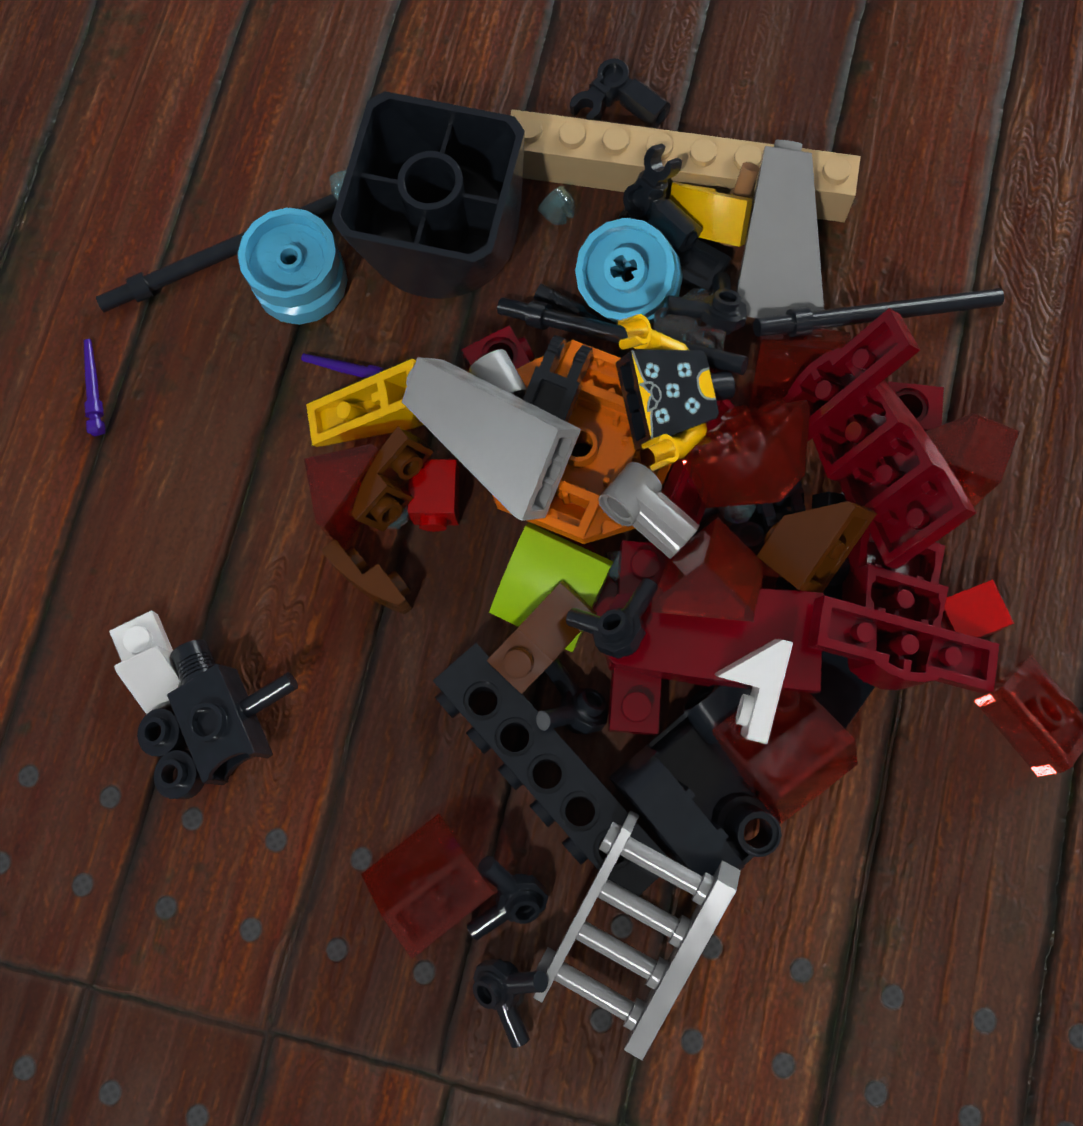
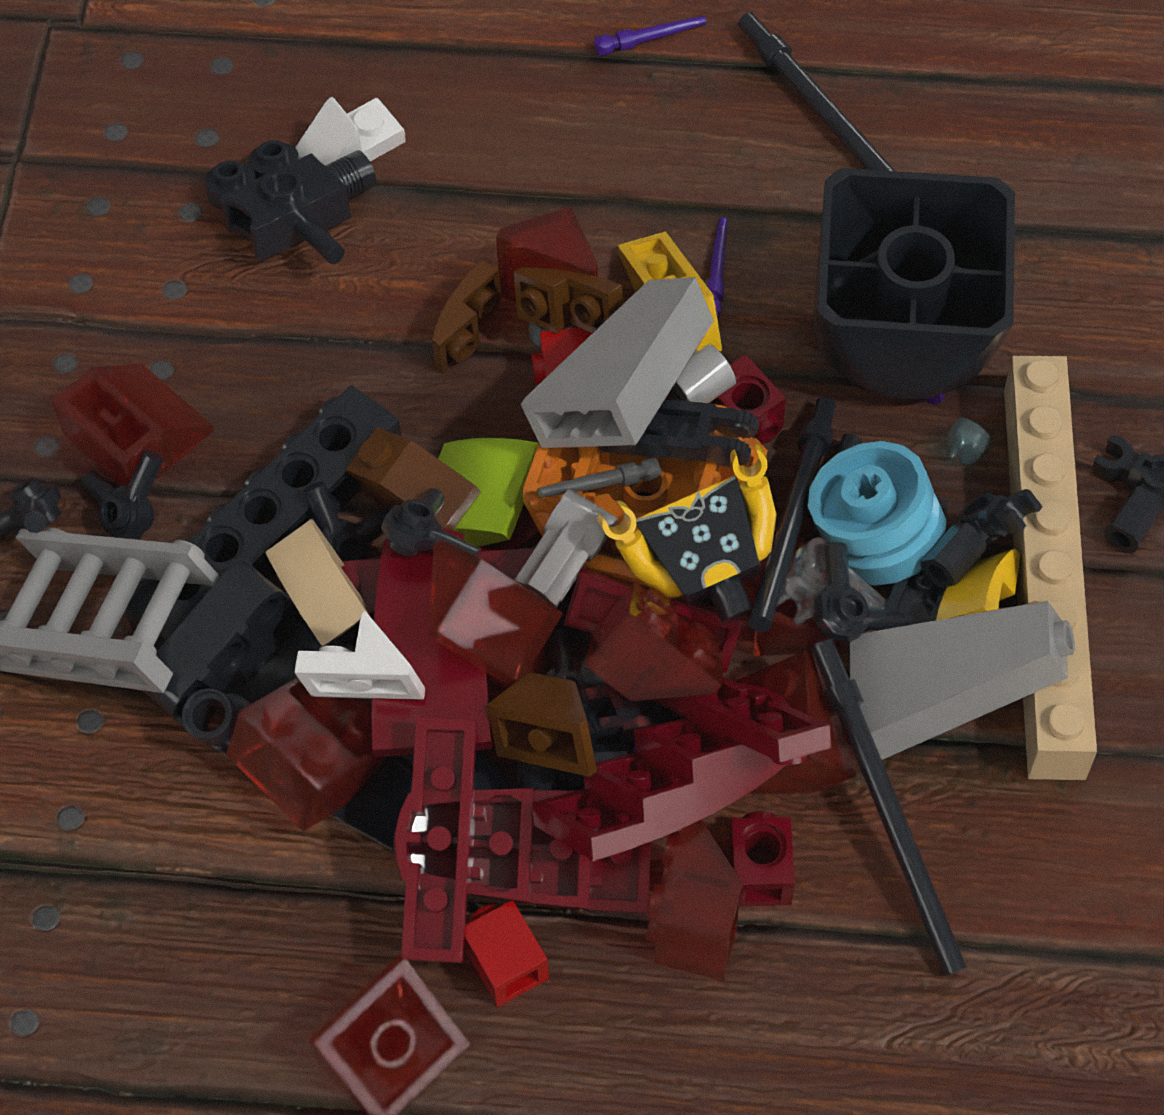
camera: 75 degrees right, 15 degrees down
(293, 265) = (799, 163): medium azure wheel -> none
(579, 458) = (623, 475): none -> dark grey piece
(641, 726) = (317, 582): none -> tan slope

